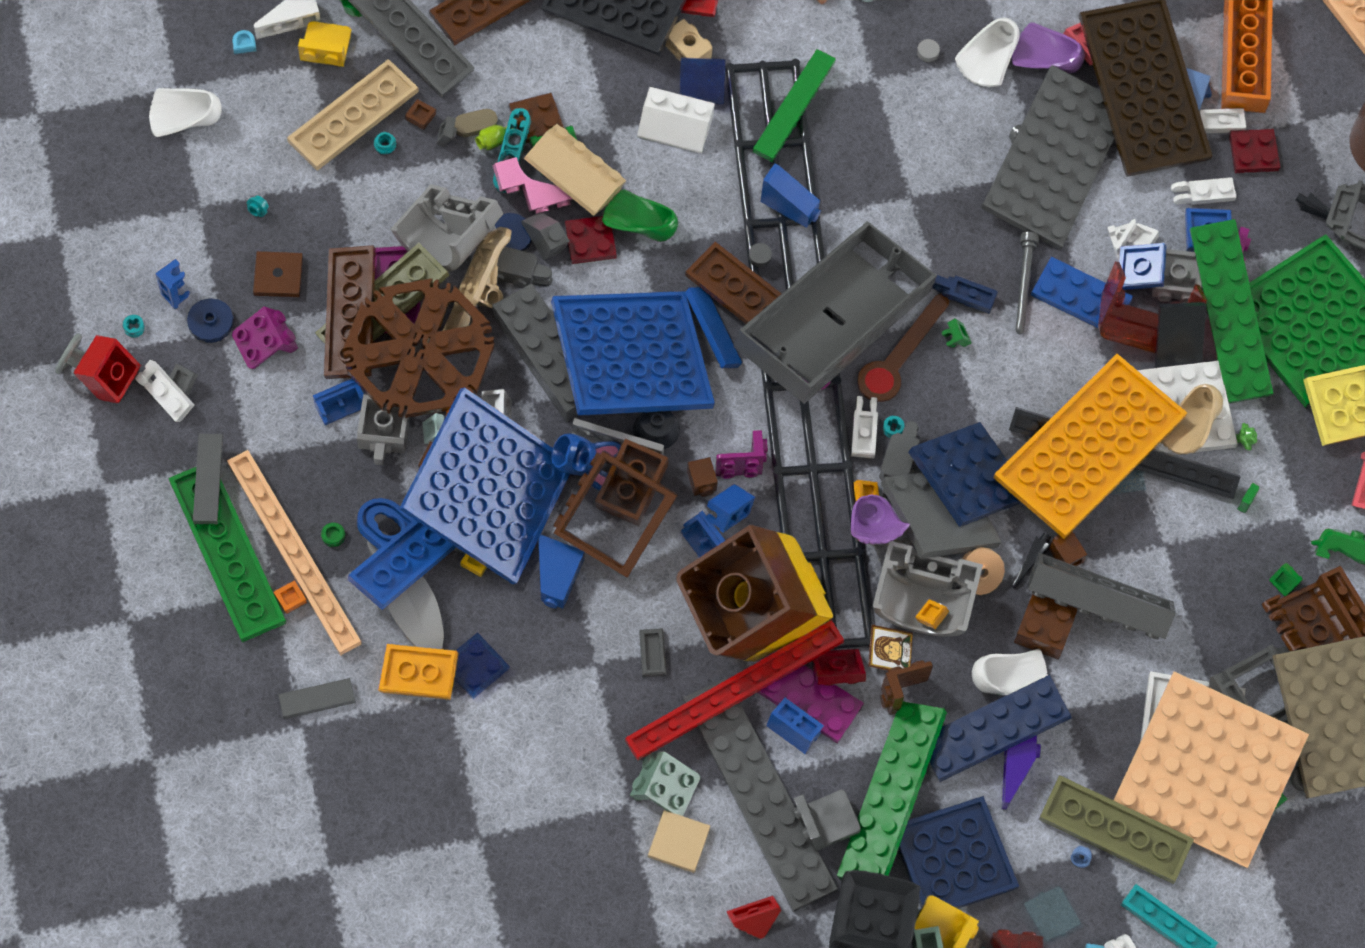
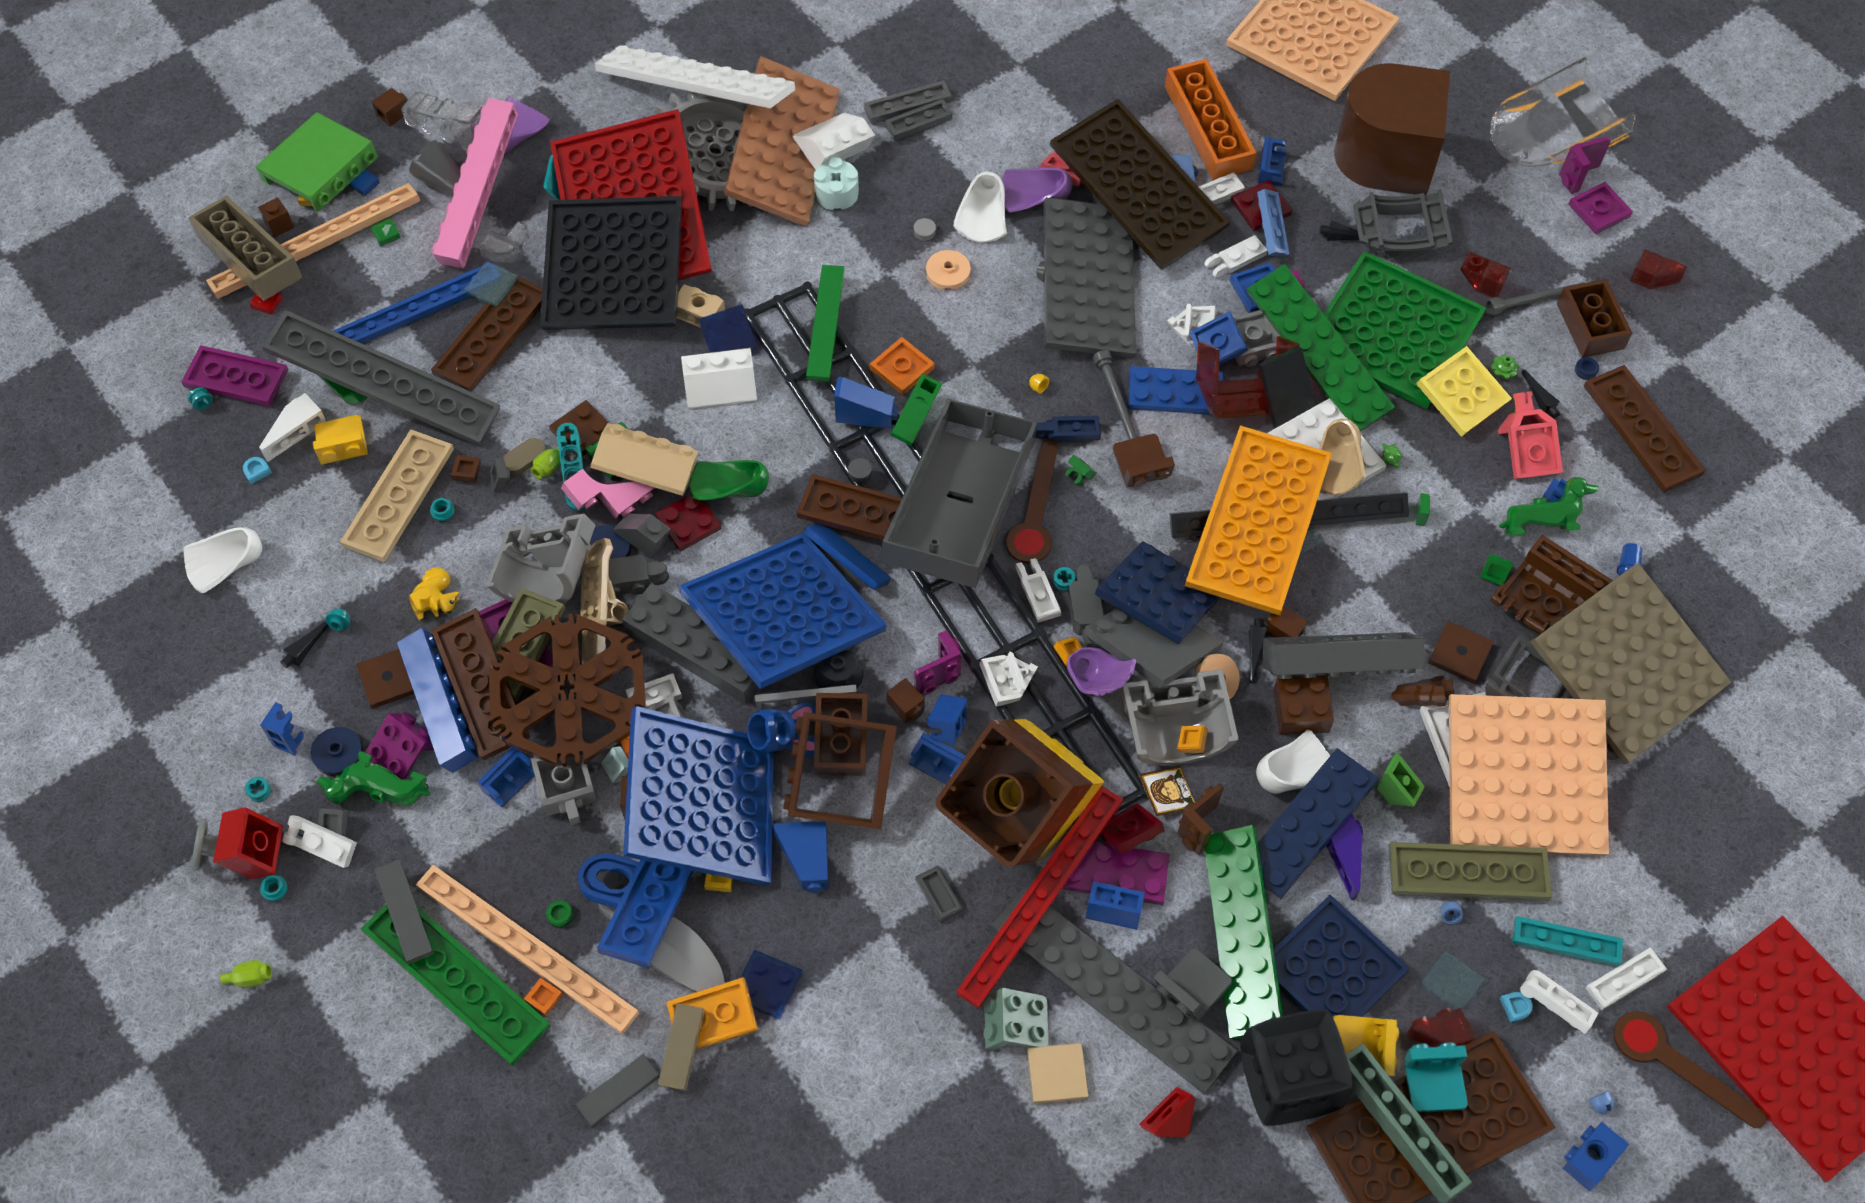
camera: 20 degrees left, 5 degrees down
(64, 477) = (248, 974): none -> lime plant
(113, 408) = (268, 883): none -> teal plate
(214, 219) = (298, 650): none -> black piece
(231, 359) = (376, 781): none -> green animal
(308, 312) = (437, 701): none -> brick
(341, 215) = (428, 594): none -> yellow animal
(382, 685) = (681, 1047): none -> dark tan tile
(497, 379) = (659, 690): none -> white plate
(798, 493) = (1006, 677): none -> white slope
(835, 219) = (916, 409): none -> green slope
(844, 173) = (901, 366): none -> orange plate
(931, 107) = (948, 278): none -> light nougat plate
(960, 236) = (1039, 383): none -> yellow hinge
(1016, 348) = (1142, 460): none -> reddish brown bracket
(1092, 728) = (1400, 784): none -> bright green slope
(1160, 660) = (1424, 692): none -> reddish brown rock
(1214, 639) = (1460, 652): none -> reddish brown tile
(1252, 173) = (1273, 223): none -> medium blue plate
(1286, 112) = (1272, 161): none -> blue hinge

